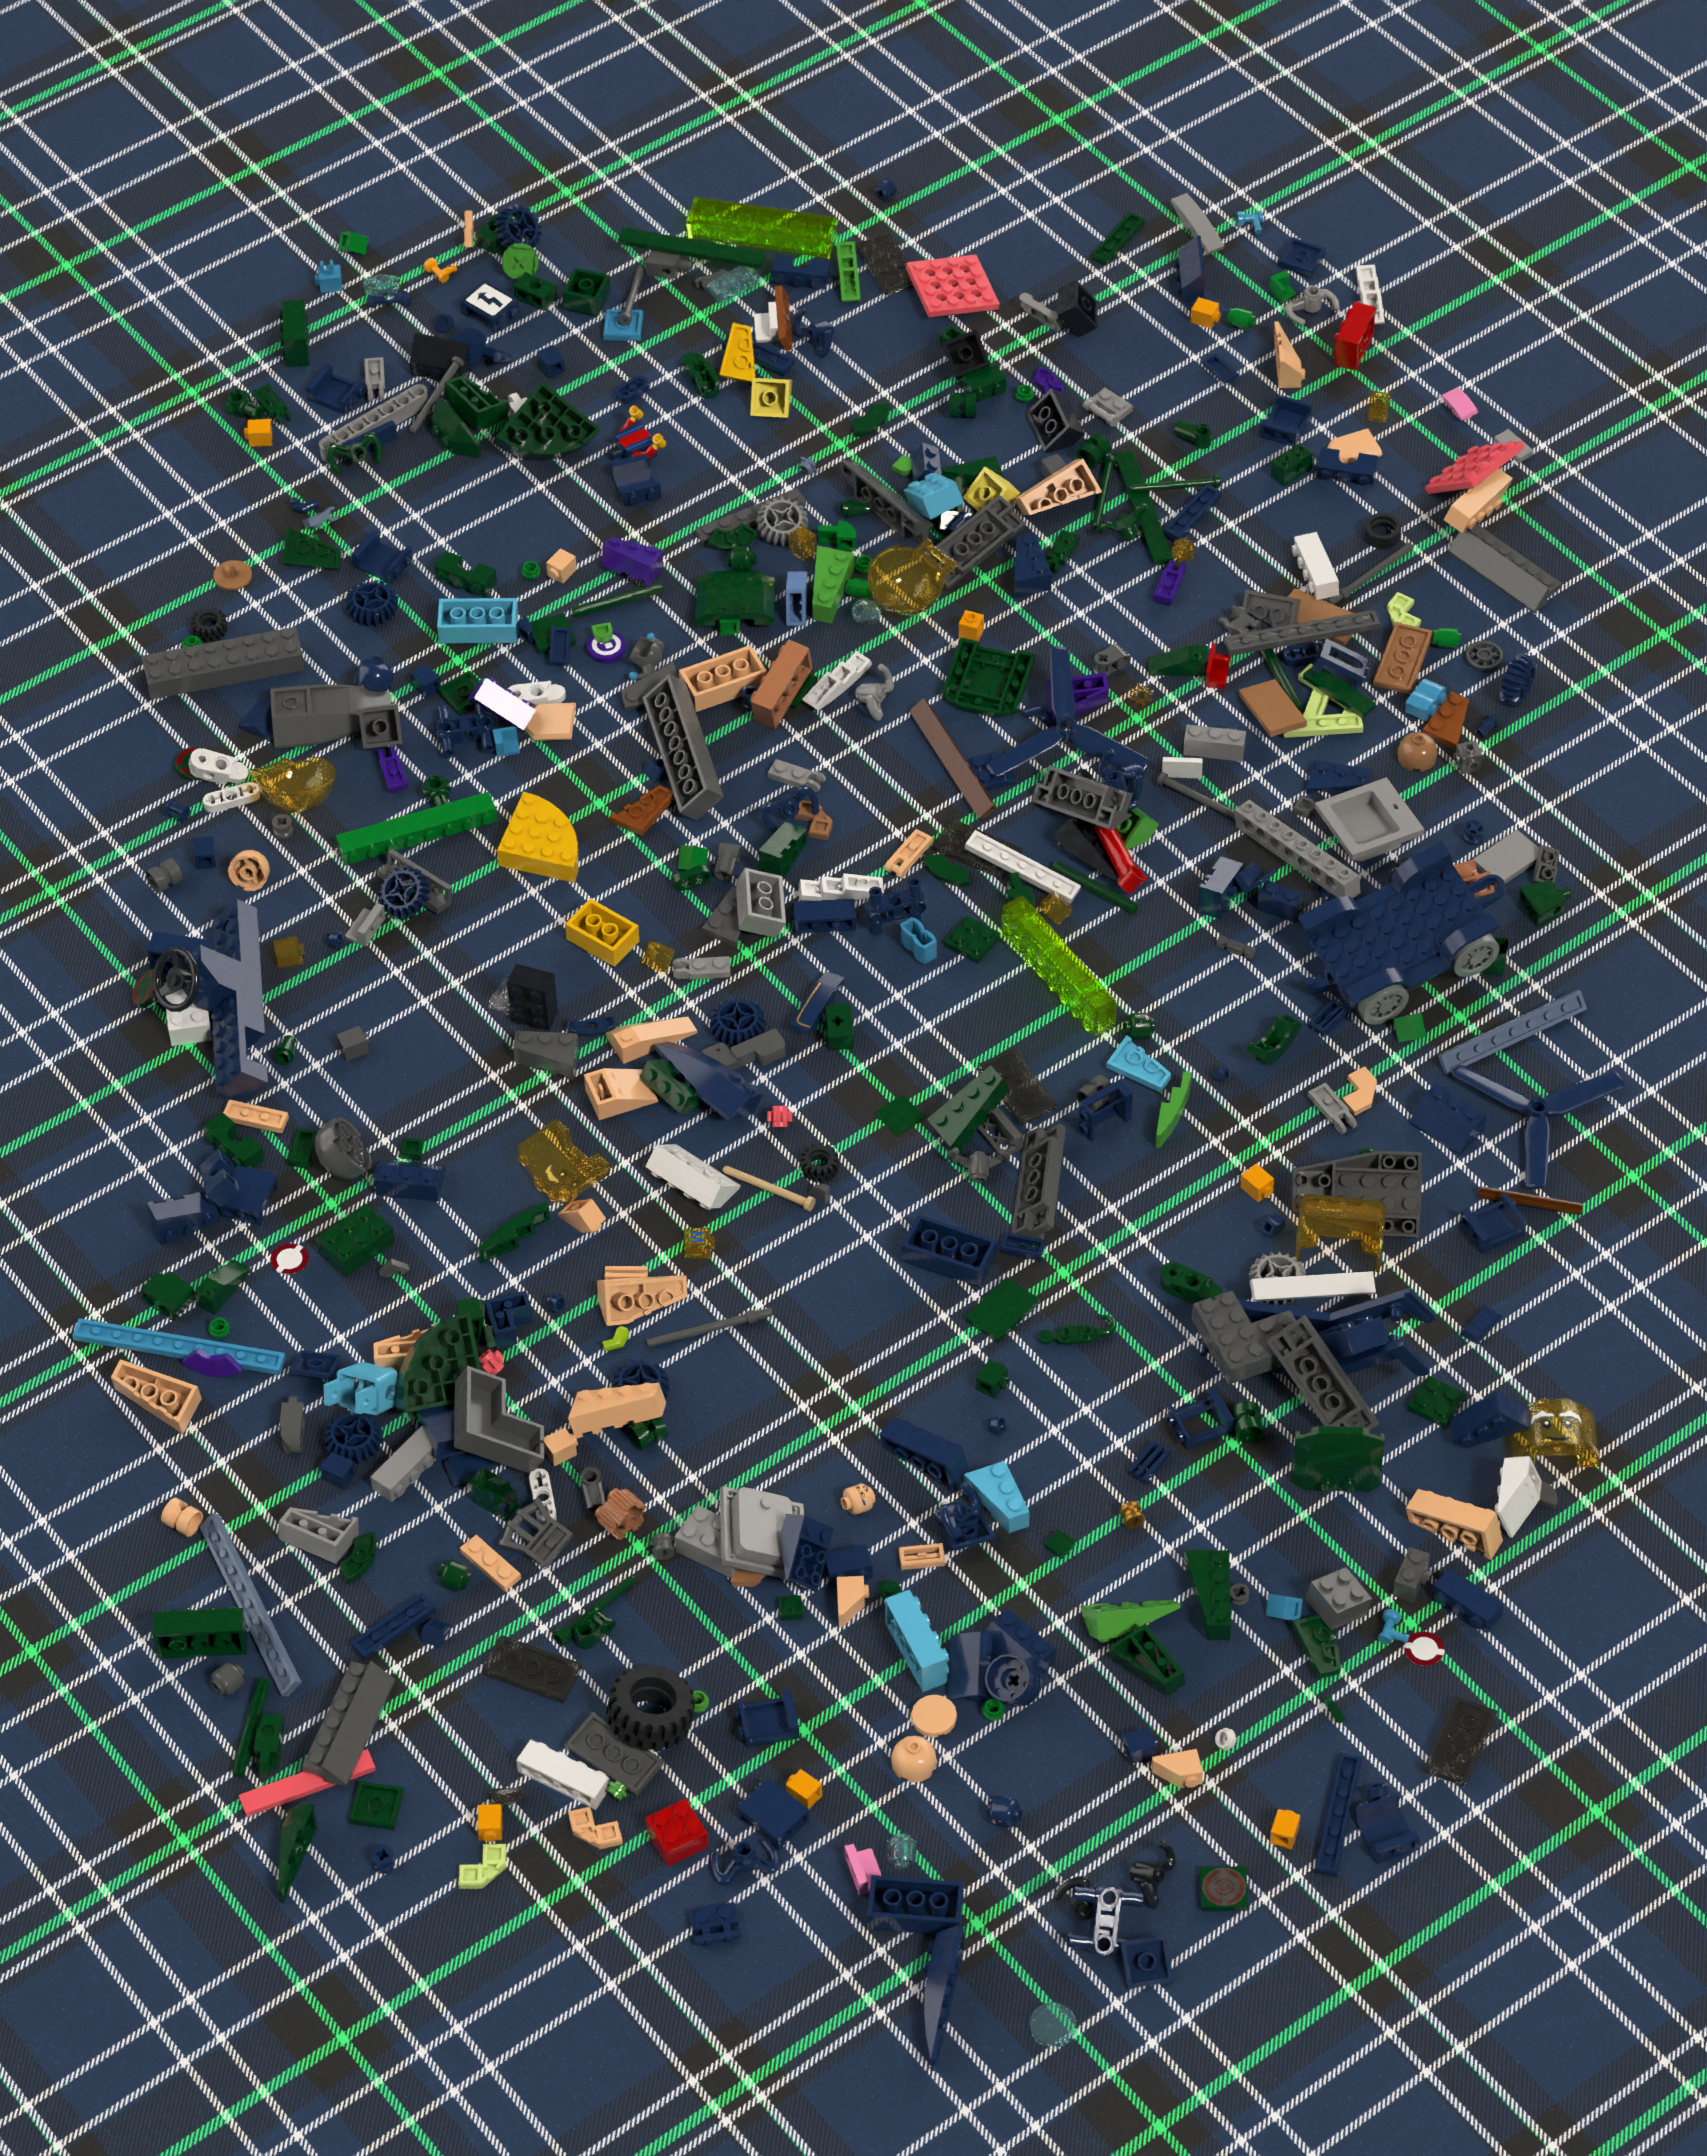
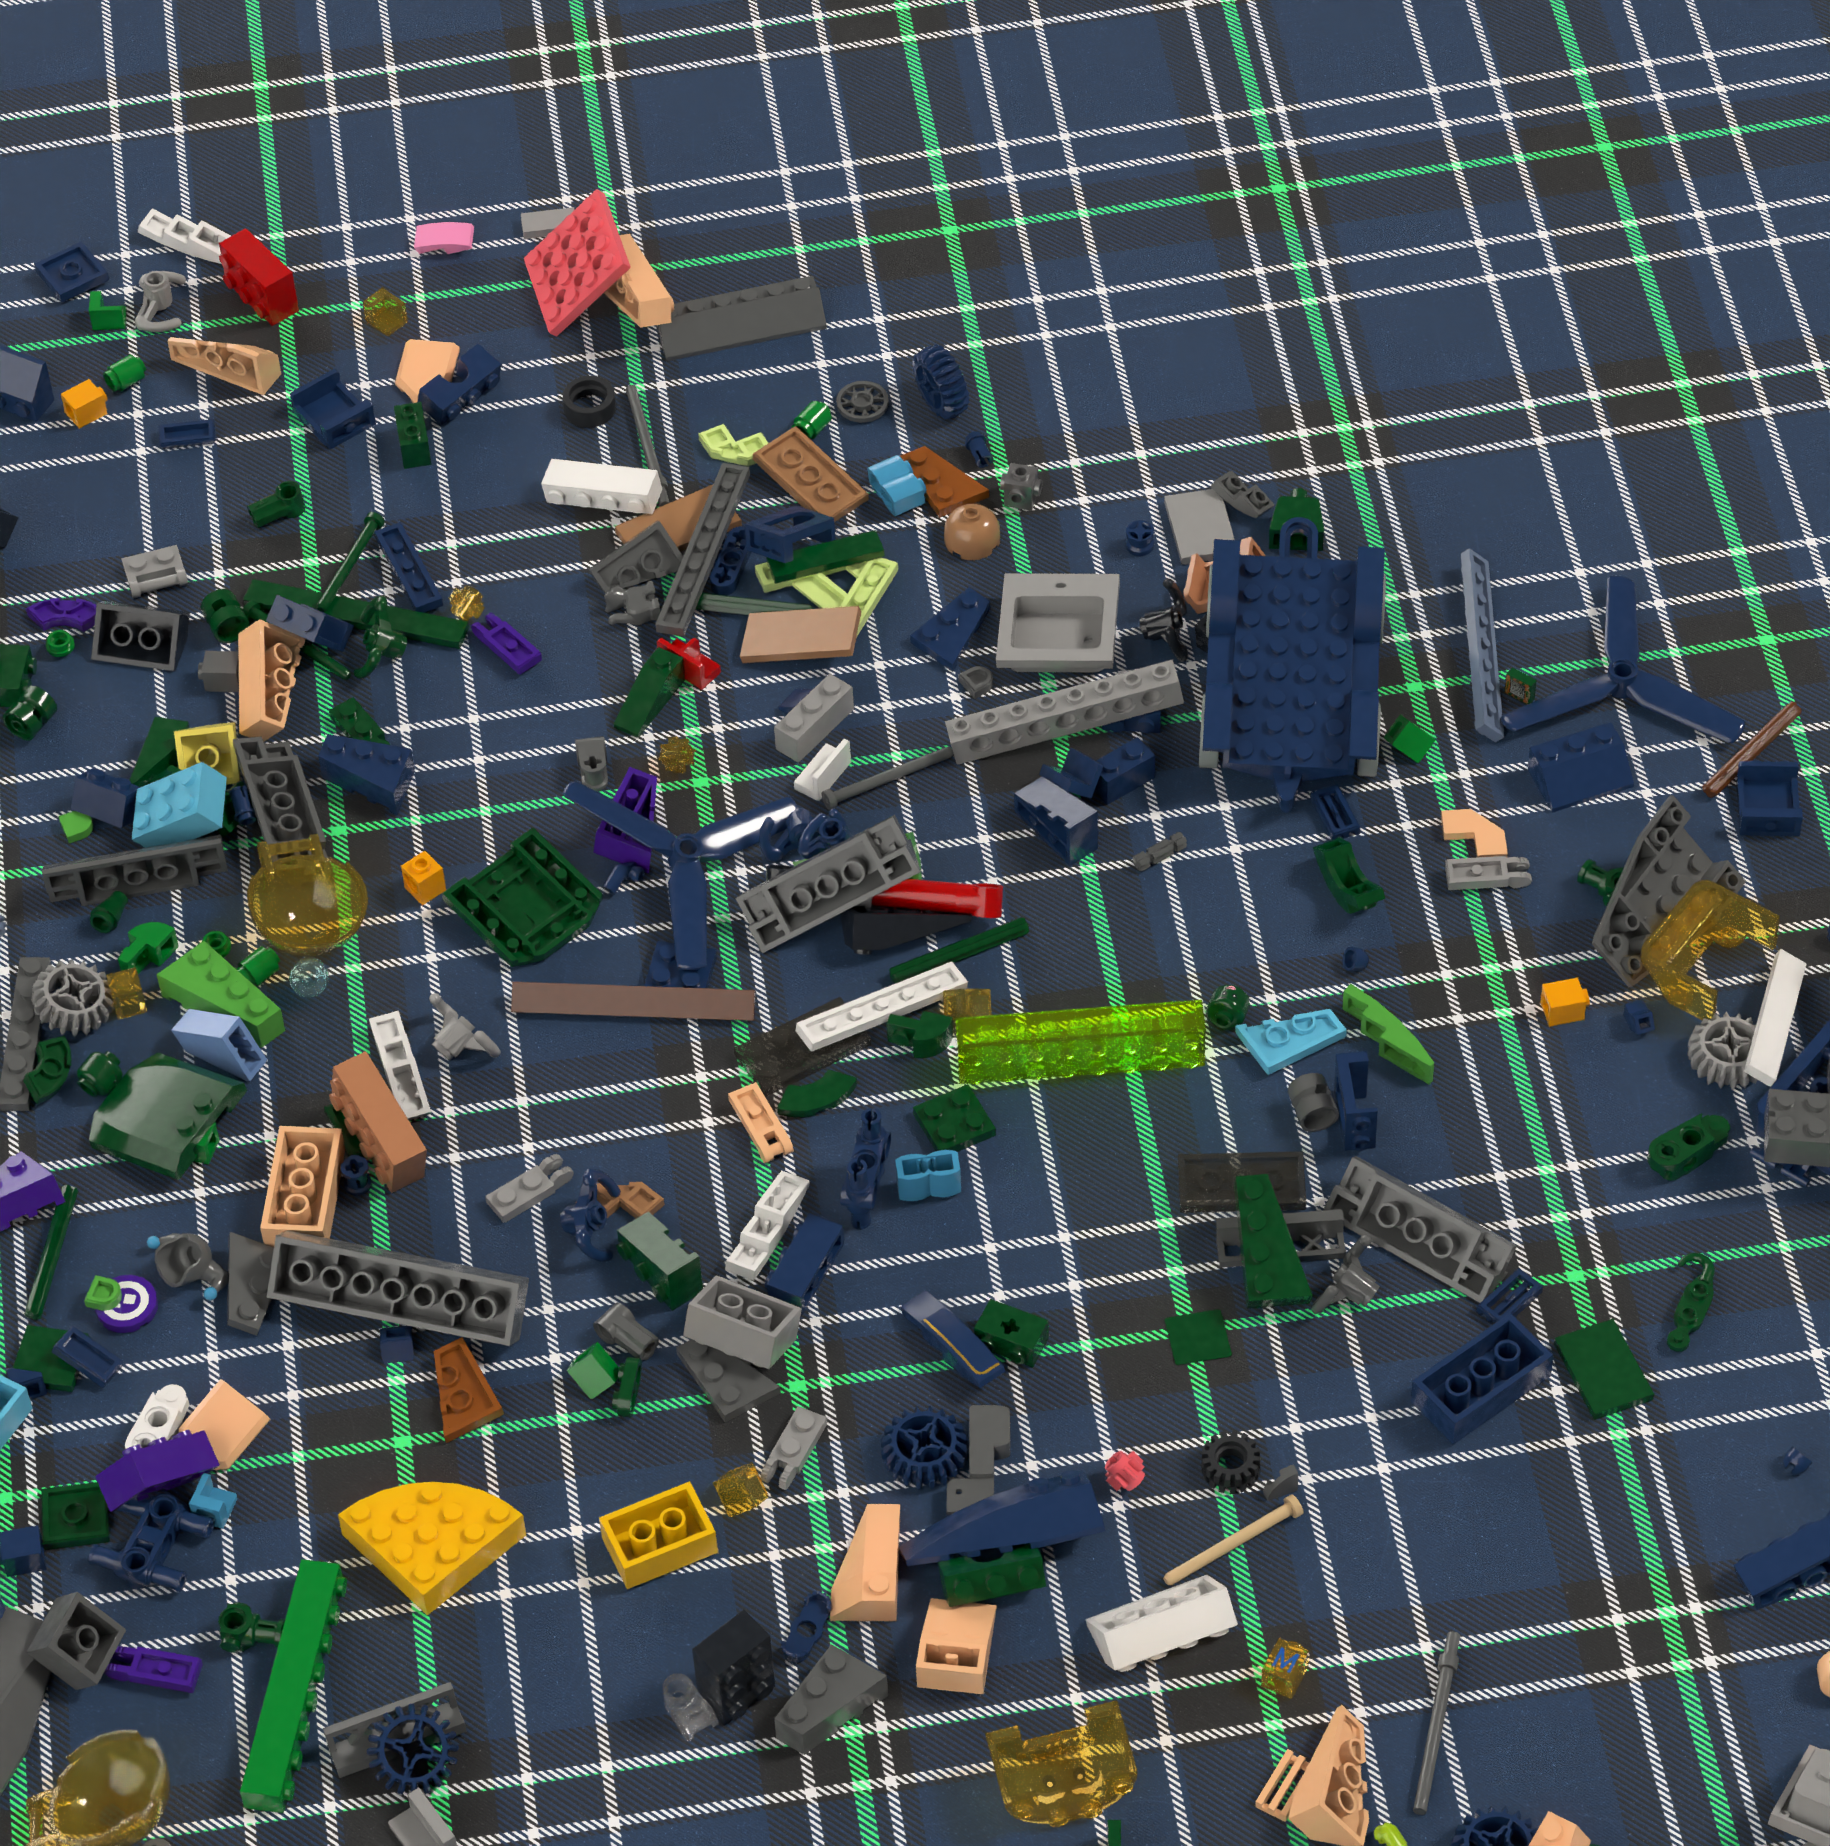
camera: 60 degrees left, 0 degrees up
(583, 1215) = (1157, 1787): light nougat slope -> none
(992, 1378) = (1719, 1429): dark green brick -> none
(1112, 496) = (309, 623): none -> dark blue panel
(1492, 1066) = (1520, 686): none -> tile

